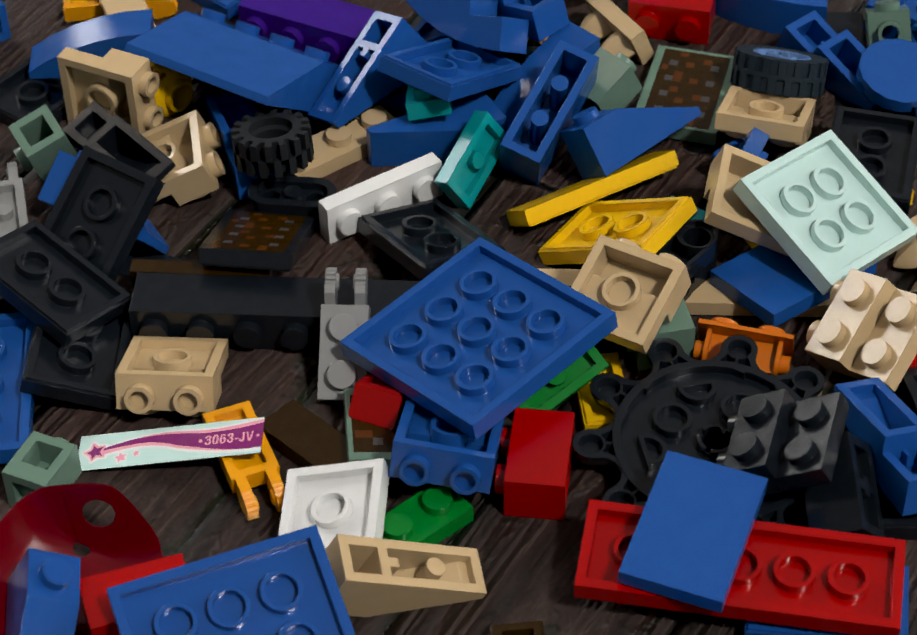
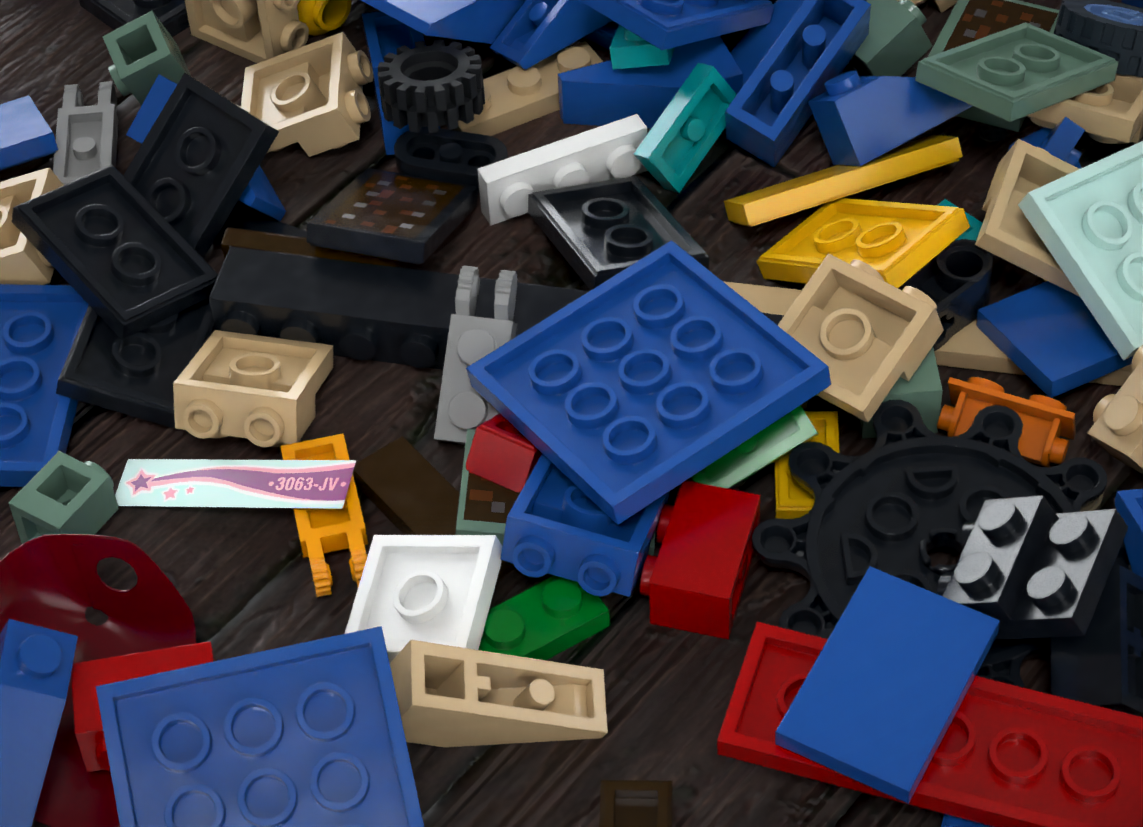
camera: 10 degrees right, 5 degrees up
(116, 139) = (235, 70): black slope -> none
(712, 98) = (1016, 71): none -> sand green tile

